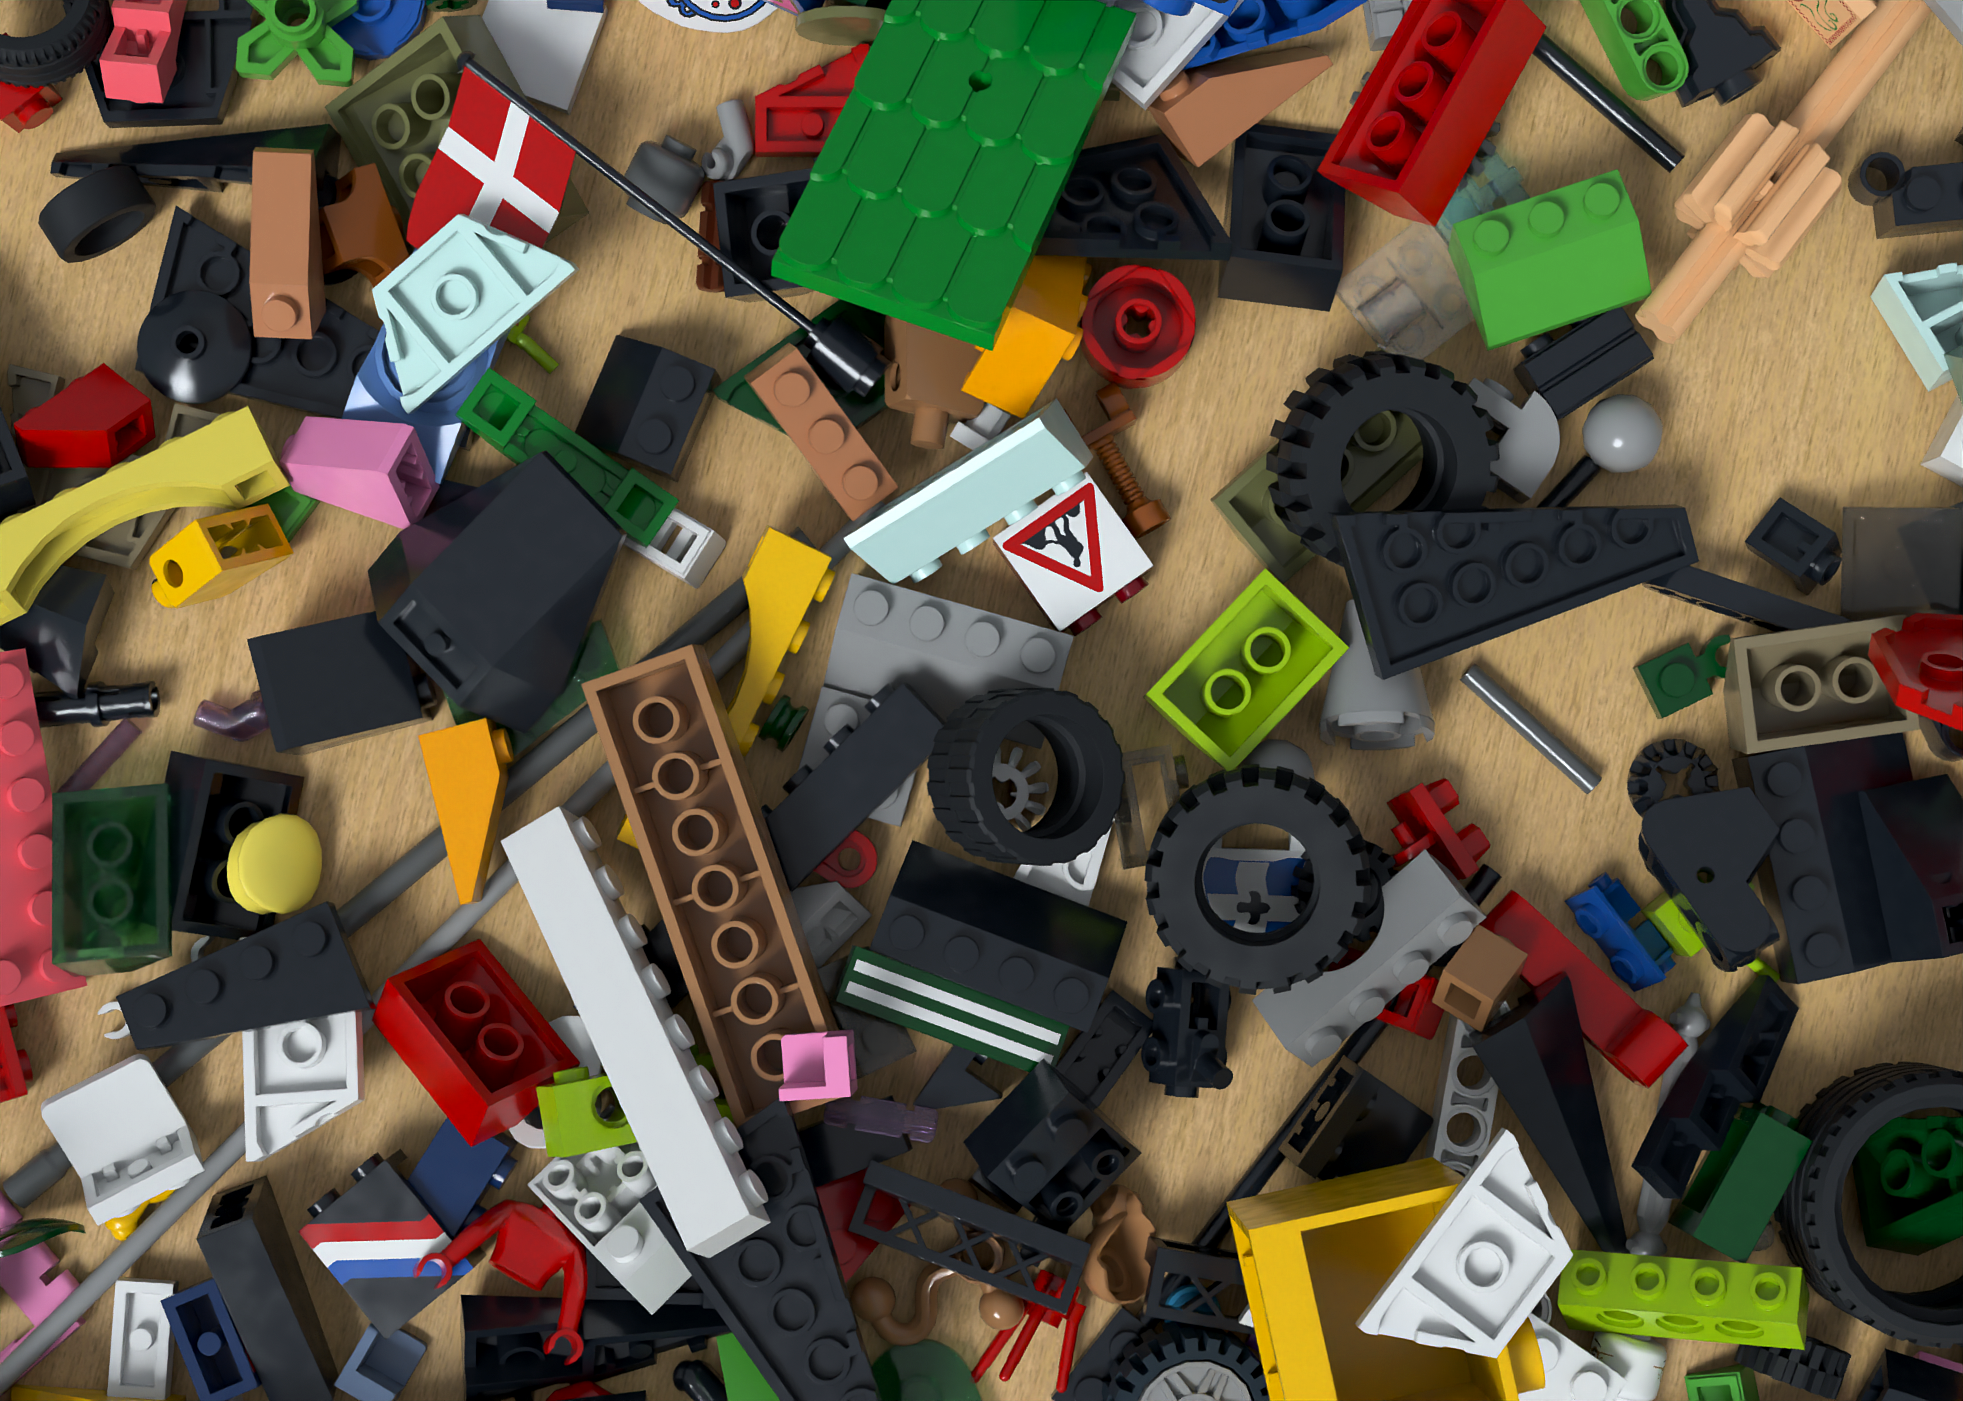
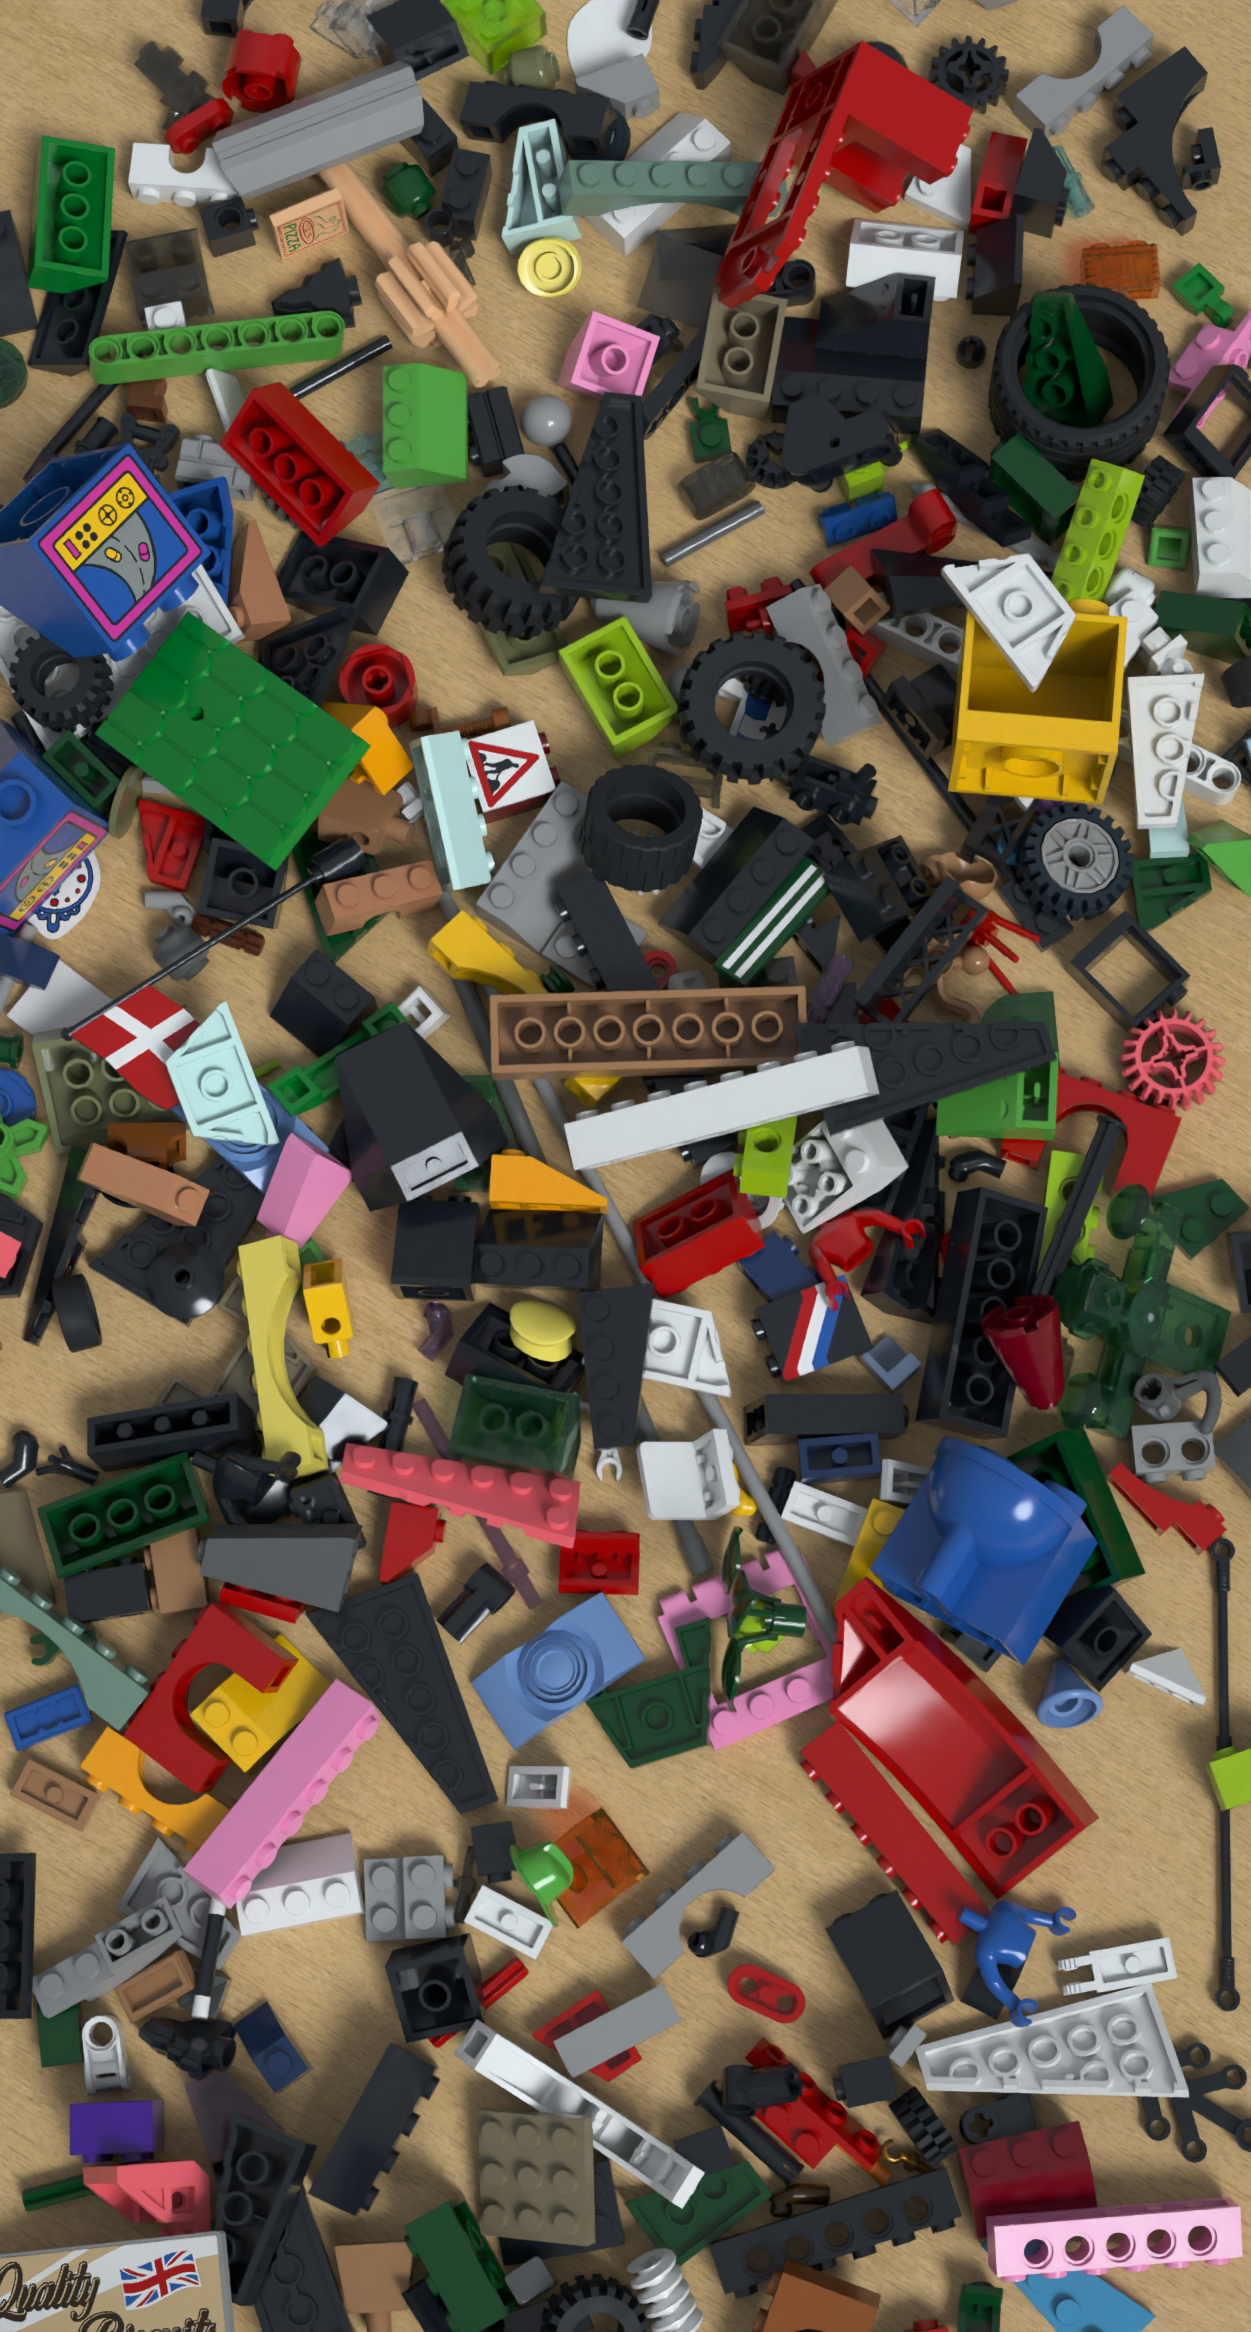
camera: 70 degrees left, 10 degrees down
(87, 424) = (211, 1356): red slope -> none
(154, 1264) = (783, 1480): none -> black axle
(377, 829) = (539, 1250): none -> black slope
(818, 1065) = (779, 994): bright pink panel -> none
(1602, 712) = (716, 486): none -> clear smoke beam
(1743, 495) = (608, 358): none -> bright pink slope
(1844, 219) = (459, 253): none -> clear smoke arm
(1864, 359) = (549, 267): none -> light yellow piece
(1918, 113) = (408, 191): none -> dark green head
(1937, 1006) = (978, 354): none -> black hinge

